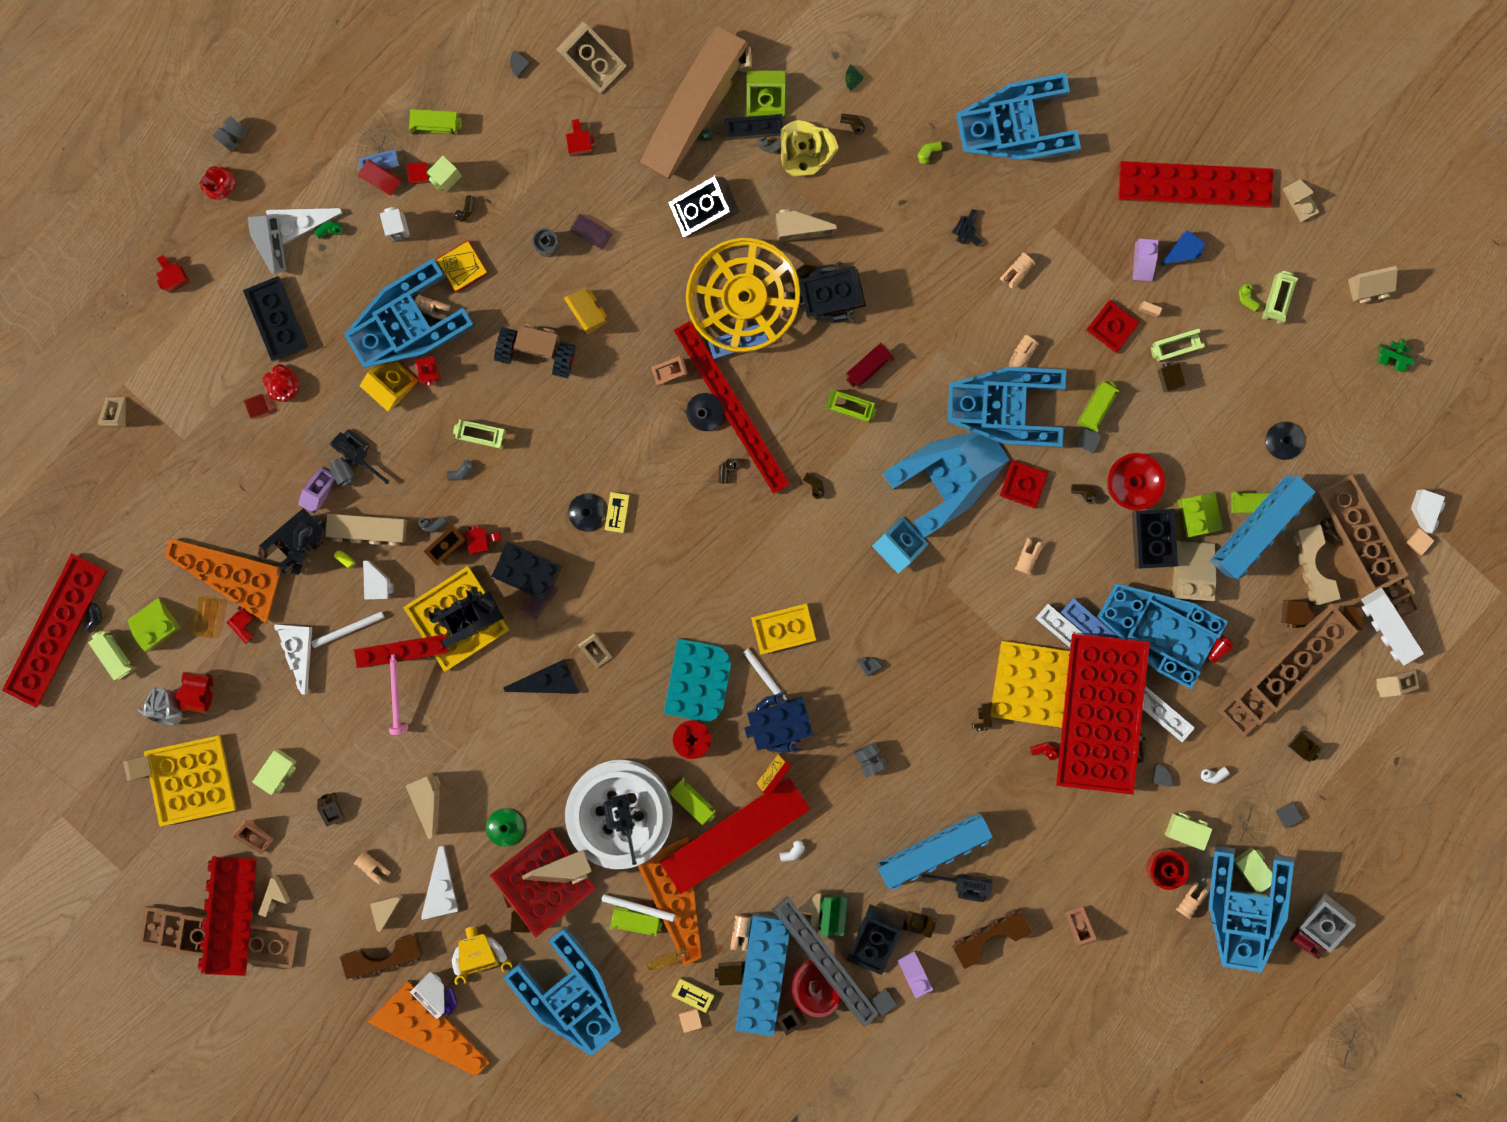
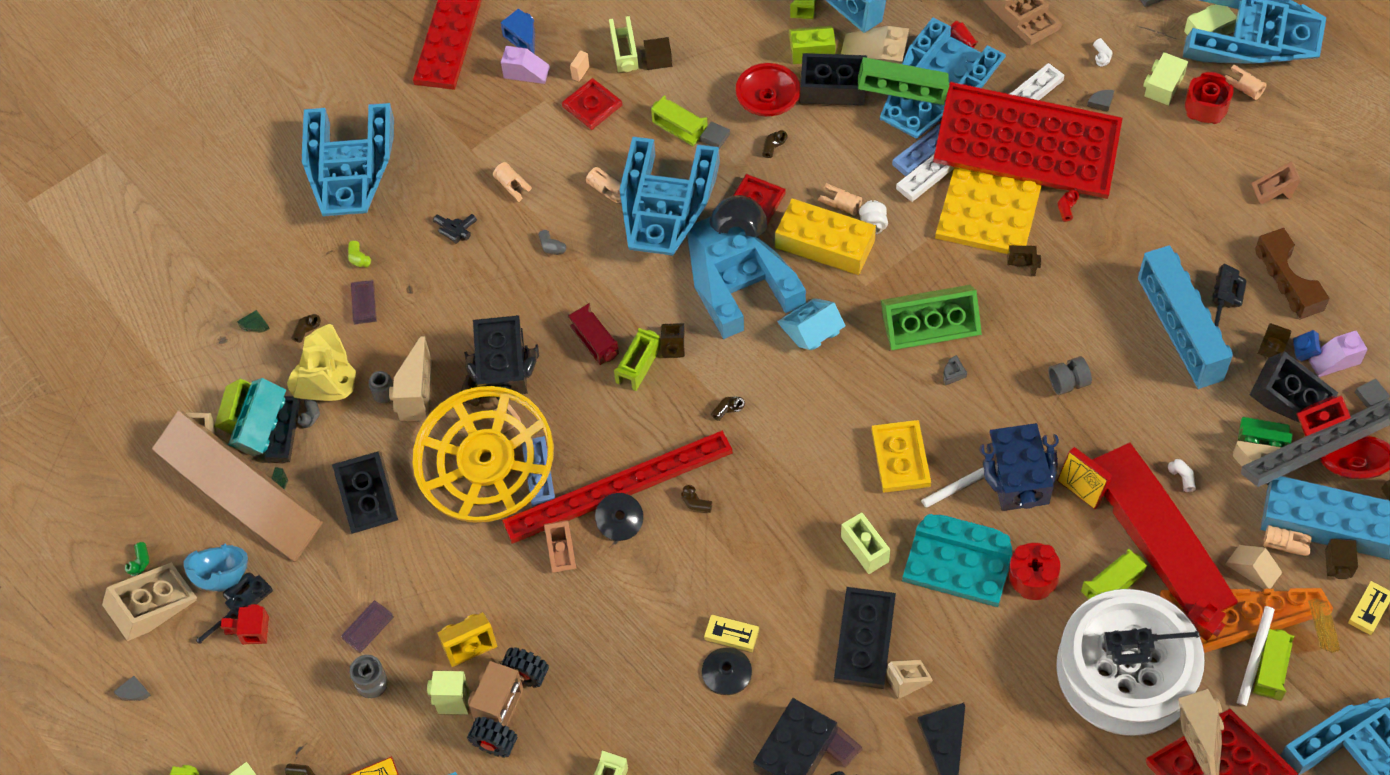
camera: 85 degrees left, 30 degrees down
(537, 306) = (449, 692): none -> yellowish green brick
(597, 128) = (256, 593): none -> black piece
(621, 103) = (216, 567): none -> dark azure cylinder
(623, 614) = (864, 637): none -> black plate
(624, 41) = (141, 562): none -> green arm
(657, 869) = (1207, 618): none -> red brick
(699, 607) = (865, 543): none -> yellowish green brick
(718, 907) = (1255, 565): none -> tan slope
(752, 105) = (257, 417): none -> brick
(797, 194) = (379, 386): none -> dark grey brick
(849, 960) = (1323, 414): none -> red slope
(872, 432) = (672, 340): none -> dark brown bracket
(884, 166) = (363, 302): none -> tile
(917, 643) = (931, 317): none -> bright green slope
(921, 950) = (1307, 345): none -> blue plate
(956, 313) = (550, 245): none -> dark grey arm
(986, 547) = (825, 236): none -> yellow brick
(991, 473) = (739, 212): none -> black cylinder
(1011, 587) = (875, 214): none -> white piece
(1147, 601) = (903, 81): none -> bright green brick

